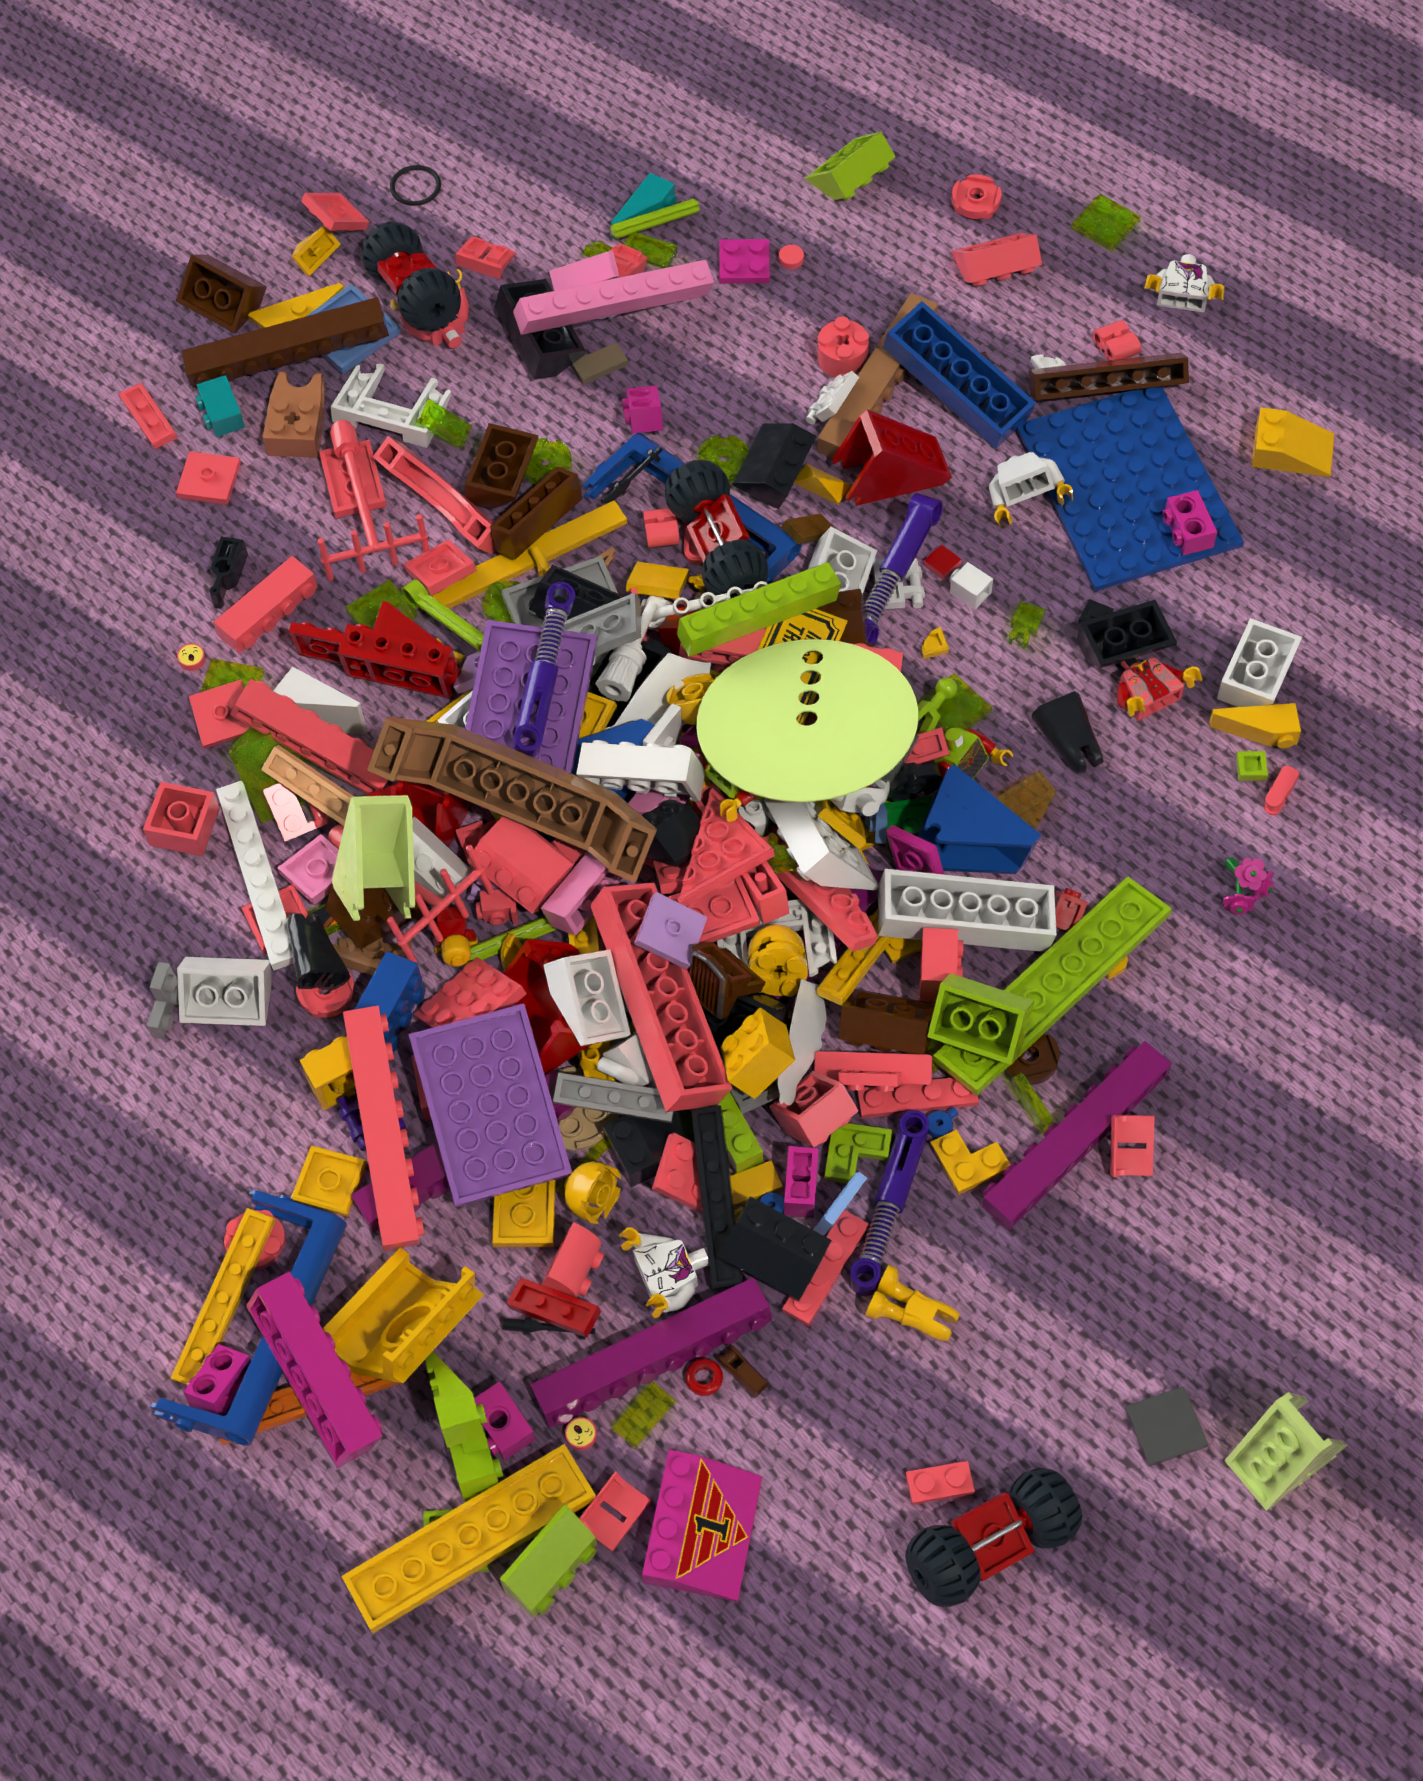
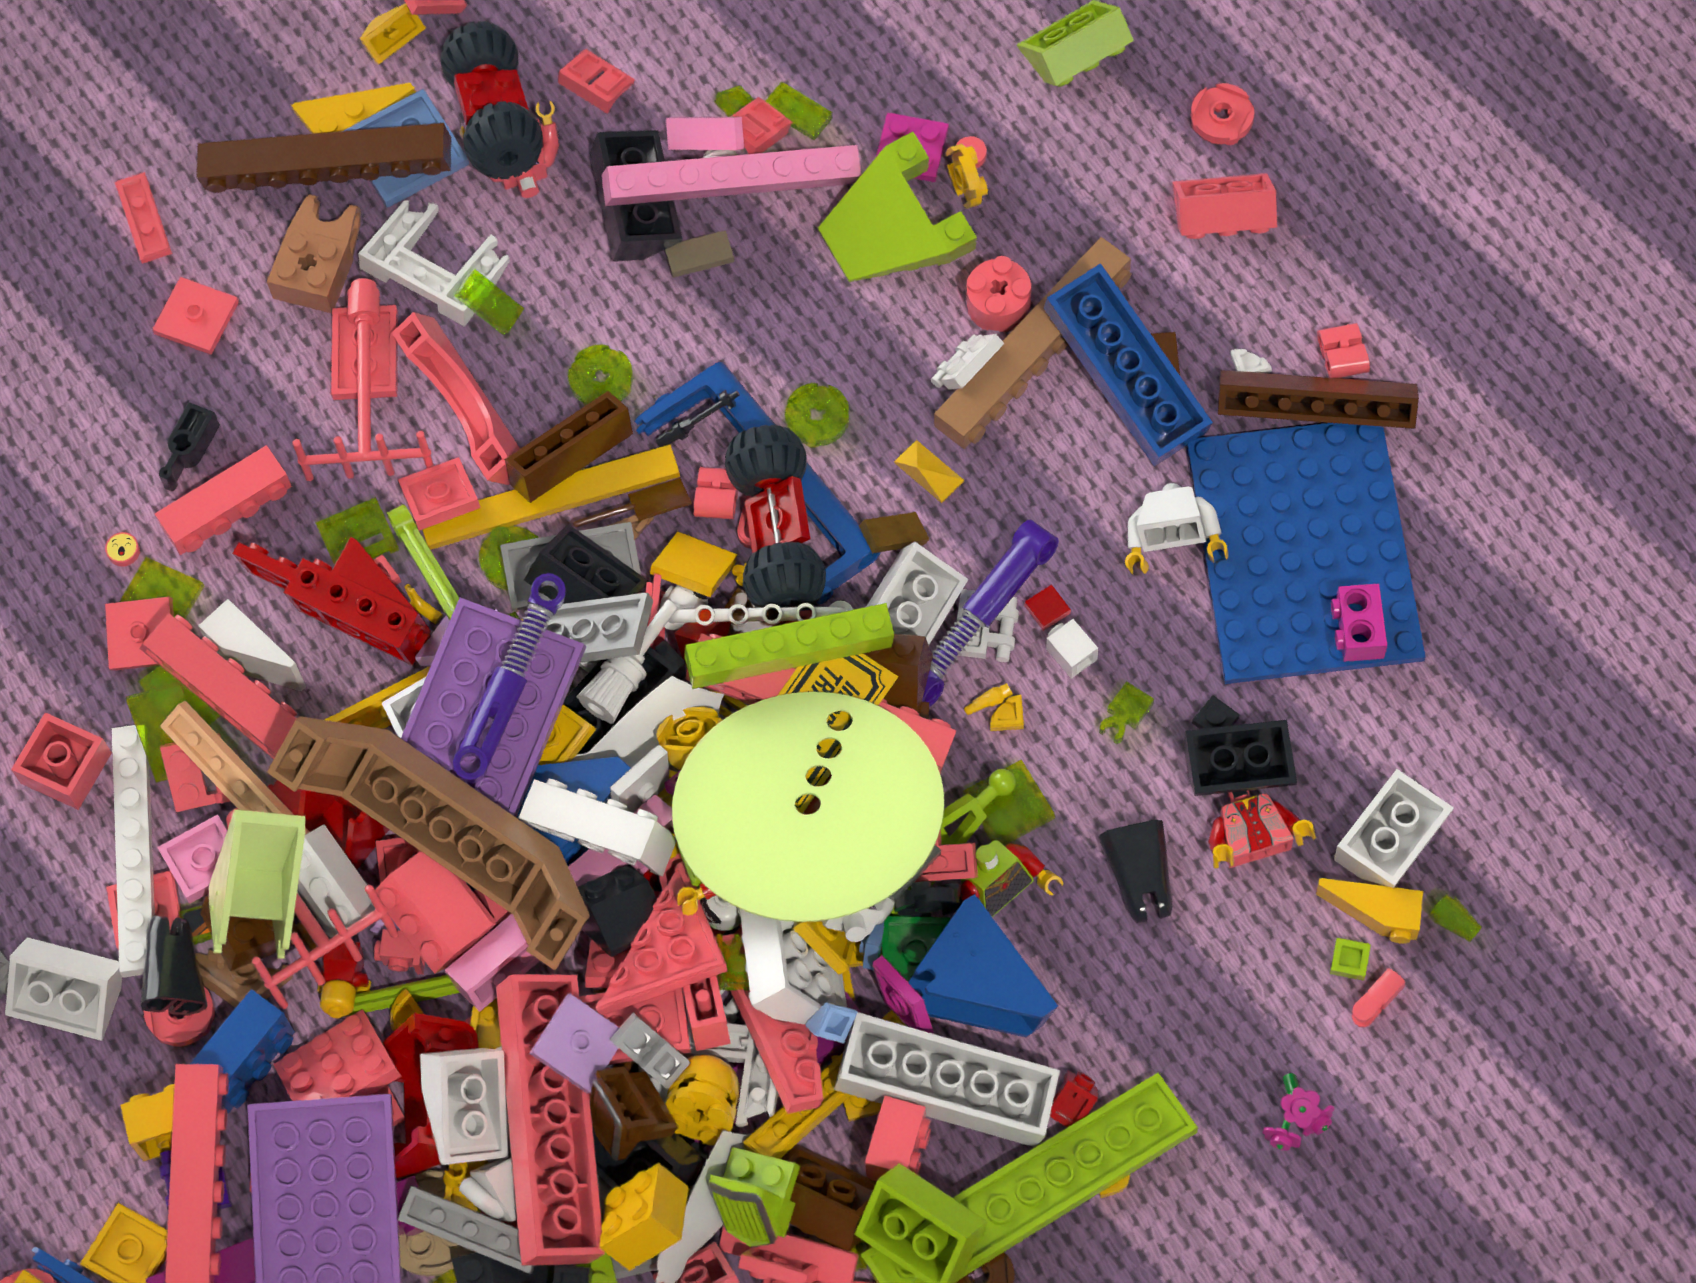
camera: 15 degrees right, 5 degrees up
(219, 292) = (264, 68): reddish brown slope -> none
(220, 406) = (229, 224): teal brick -> none
(499, 466) = (540, 374): reddish brown slope -> none
(540, 560) = (561, 511): yellow bar -> none
(609, 543) = (648, 502): none -> reddish brown piece
(643, 409) = (732, 332): dark pink brick -> none
(650, 196) = (807, 48): teal slope -> none
(655, 218) = (813, 69): lime axle -> none
(728, 926) = (650, 1051): none -> light grey slope
(742, 314) = (882, 224): none -> lime wedge
(774, 462) = (873, 434): black slope -> none
(794, 268) = (965, 175): none -> yellow plate
(839, 1026) = (755, 1196): none -> lime piece
(867, 879) = (832, 1022): none -> light blue slope
(894, 459) = (1021, 461): red ladder -> none
(917, 634) = (990, 698): none -> yellow piece
(1029, 798) = (1063, 951): clear yellow wing -> none
(1106, 222) = (1376, 180): clear neon green plate -> none
(1184, 285) = (1448, 290): white torso -> none
(1291, 444) = (1524, 537): yellow slope -> none
(1322, 720) = (1455, 917): none -> clear neon green cone

